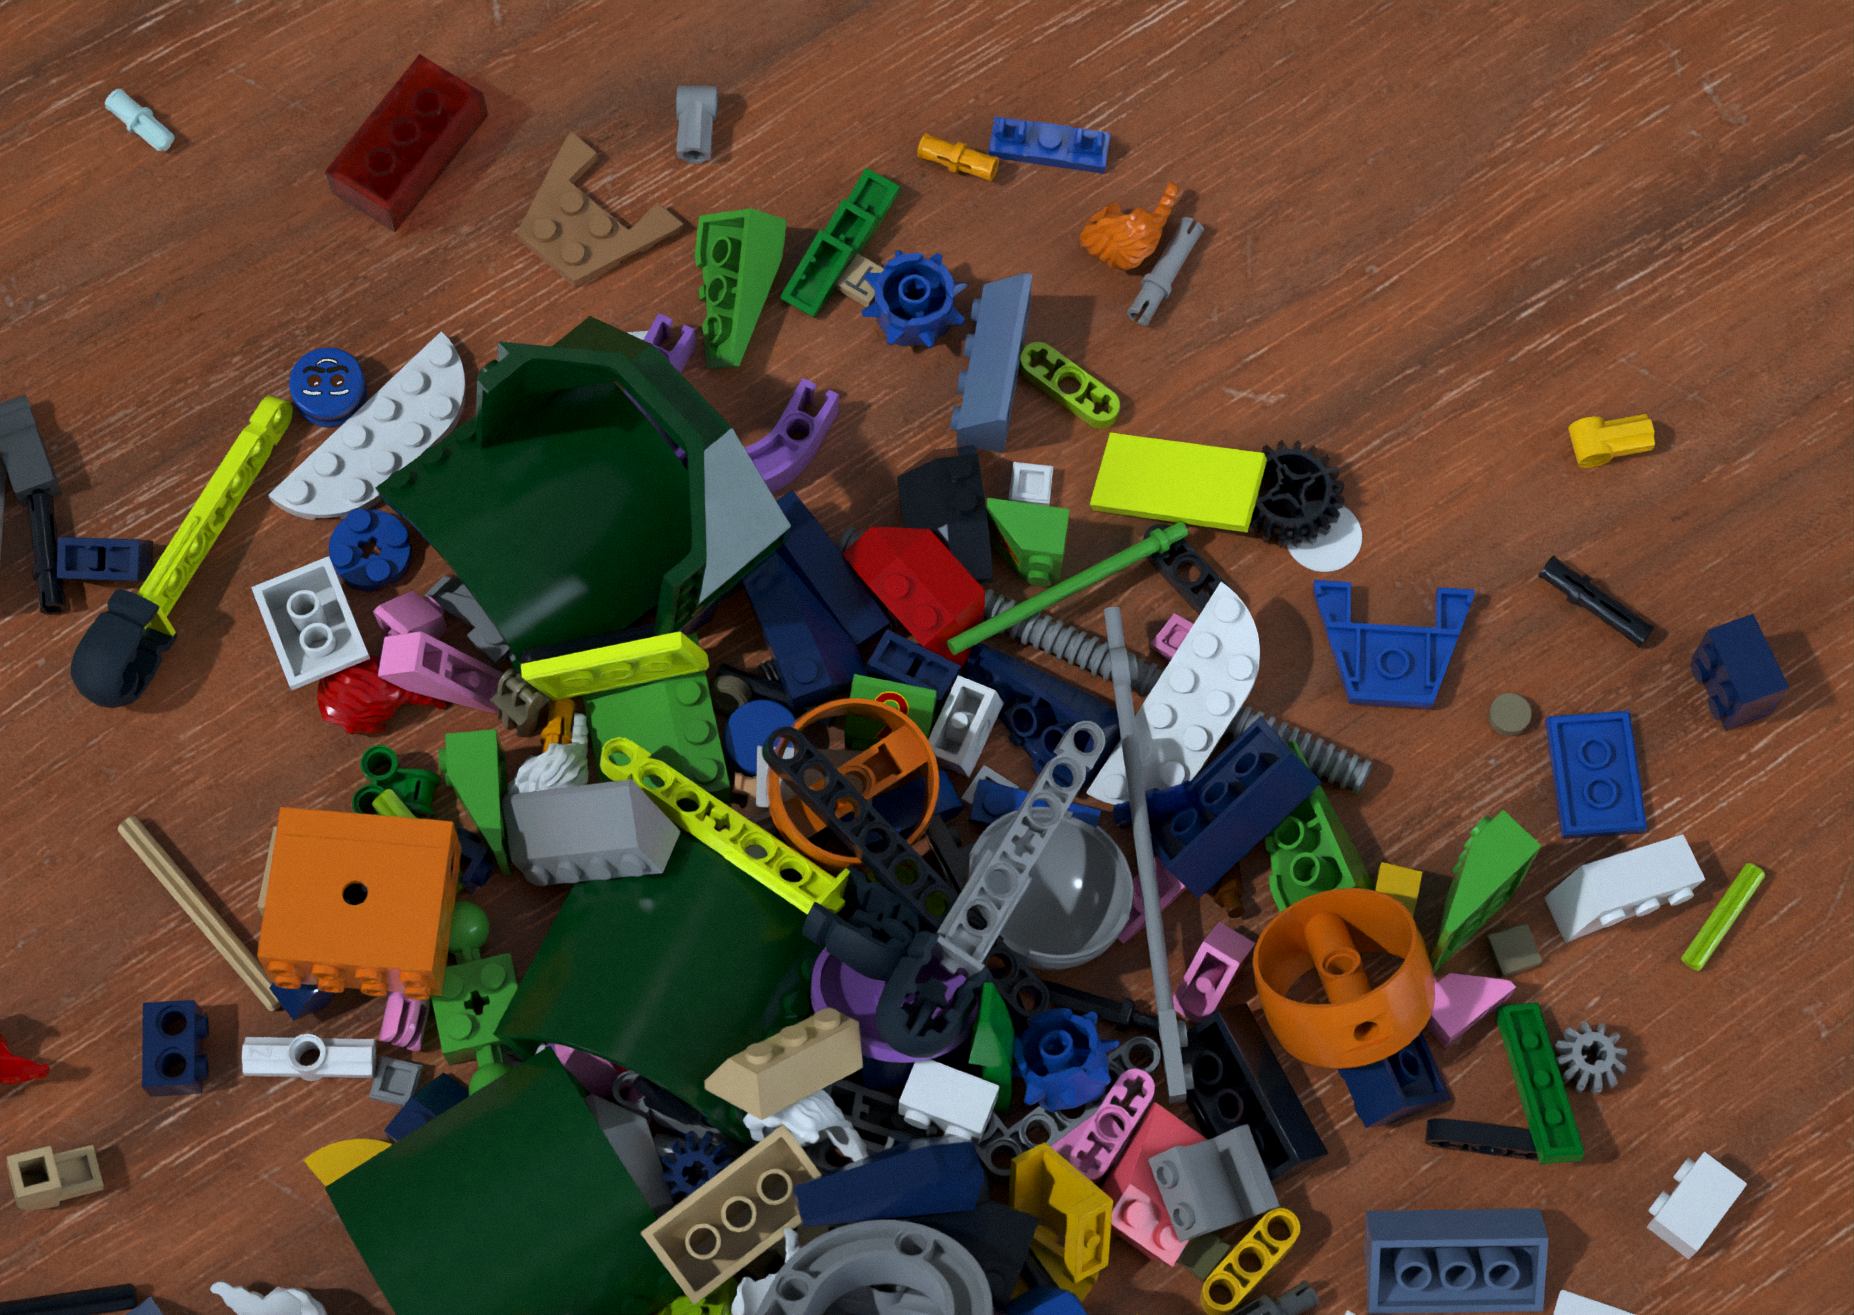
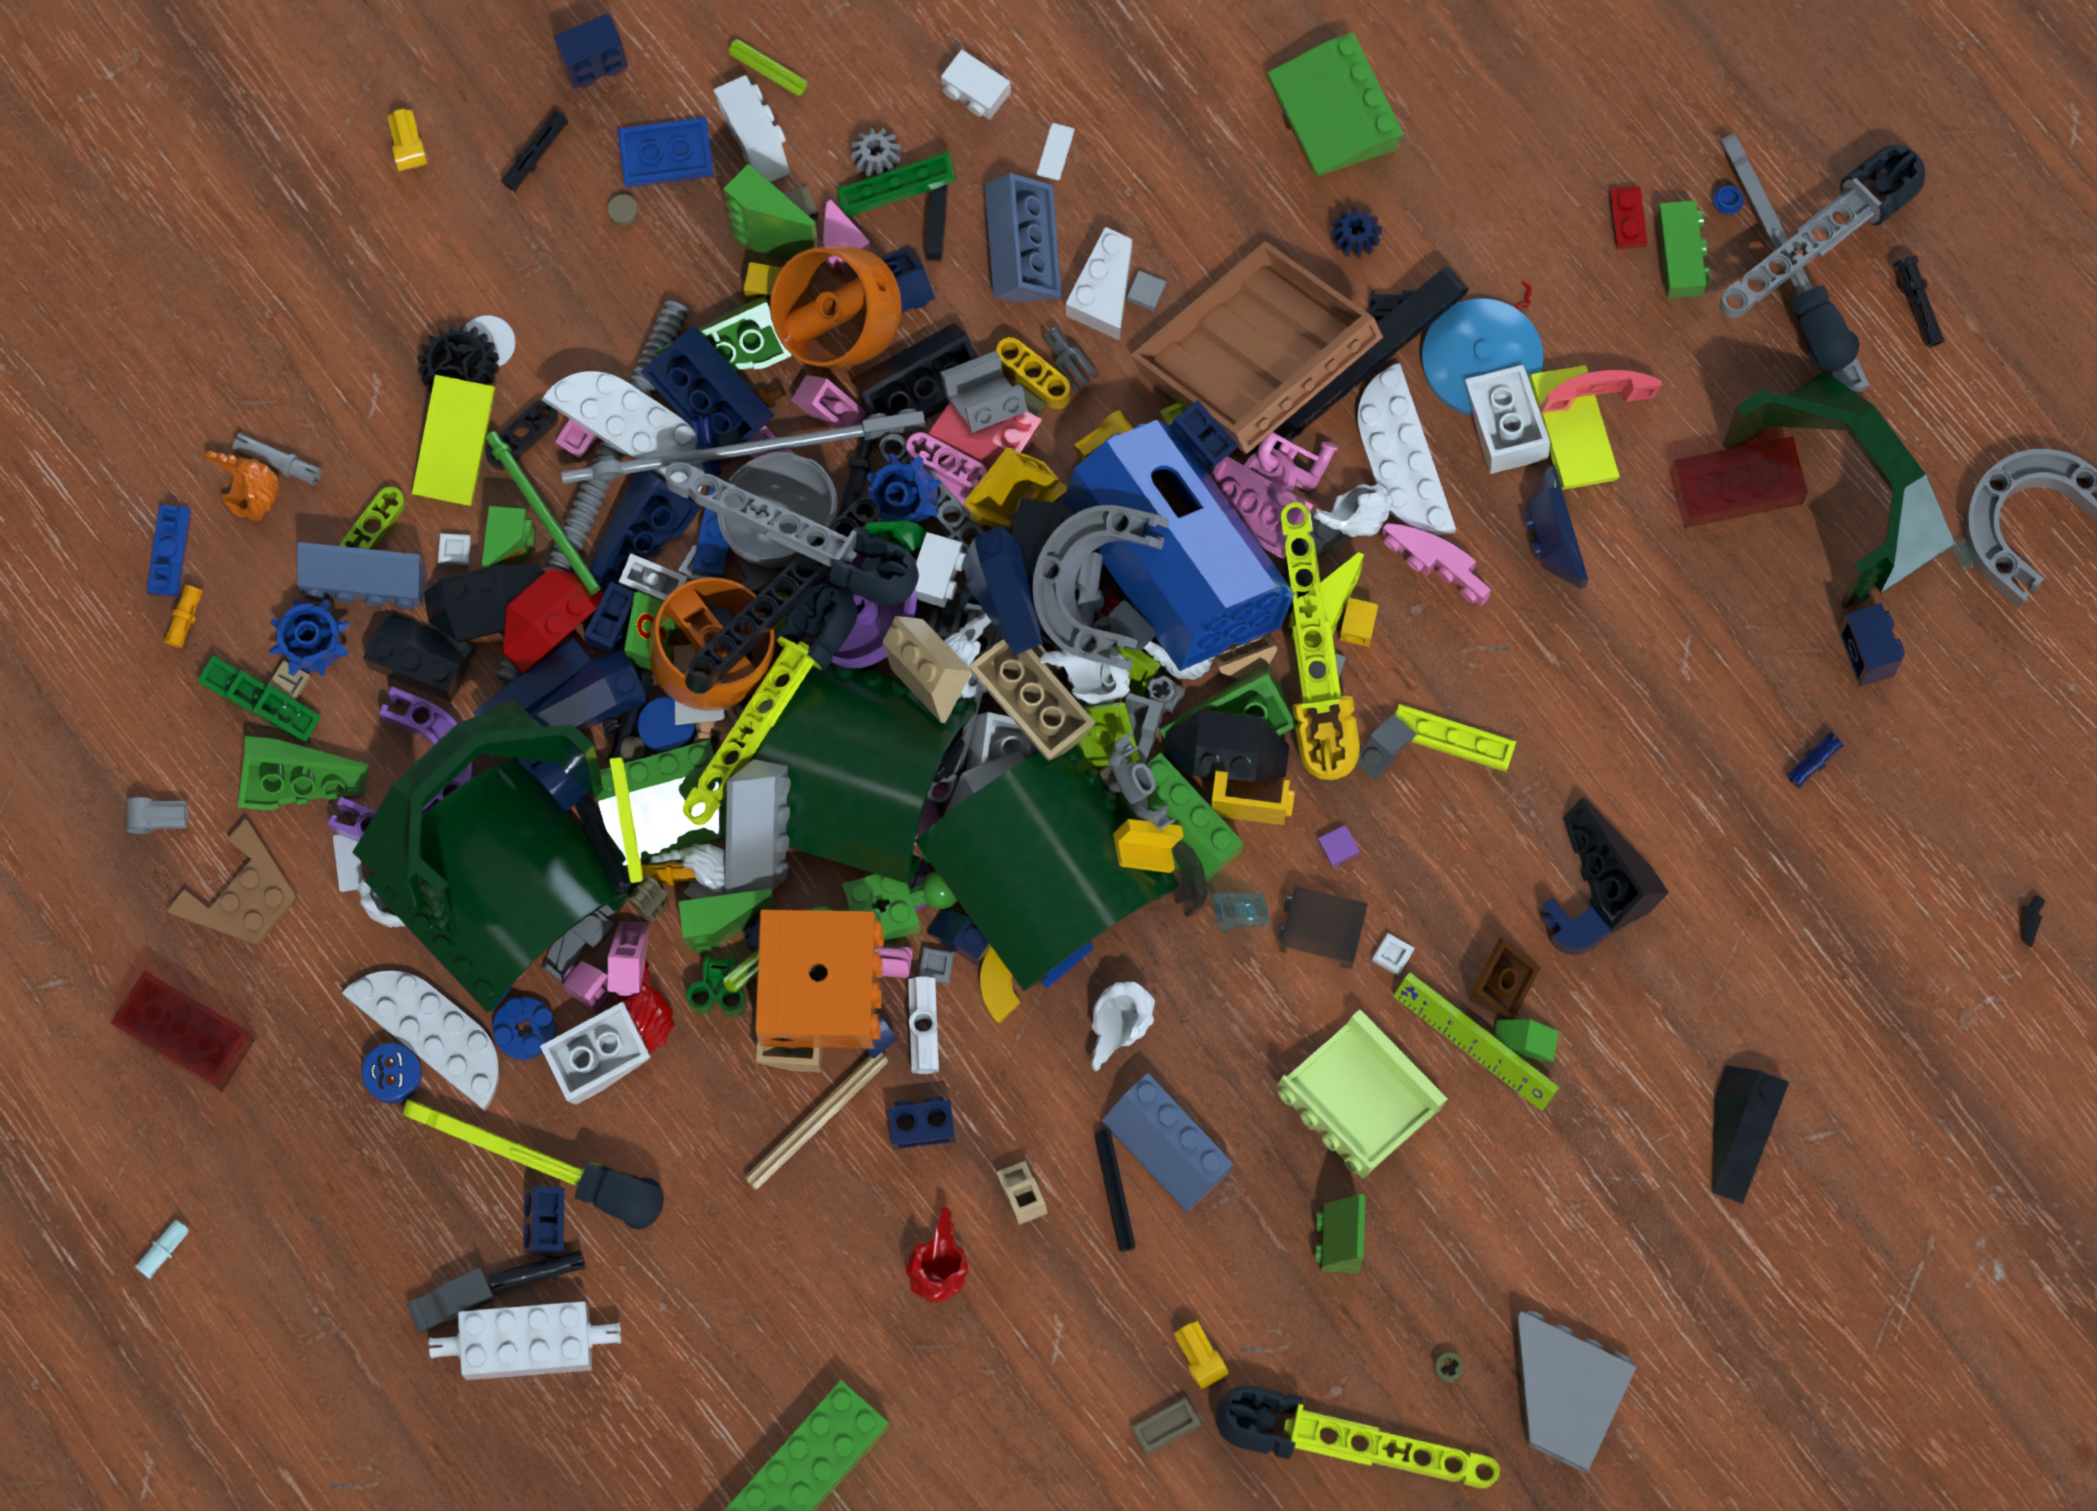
camera: 90 degrees left, 5 degrees up
(686, 1154) = (996, 732): dark blue gear -> none
(884, 433) = (419, 656): none -> black slope
(1391, 661) = (586, 291): blue wing -> none

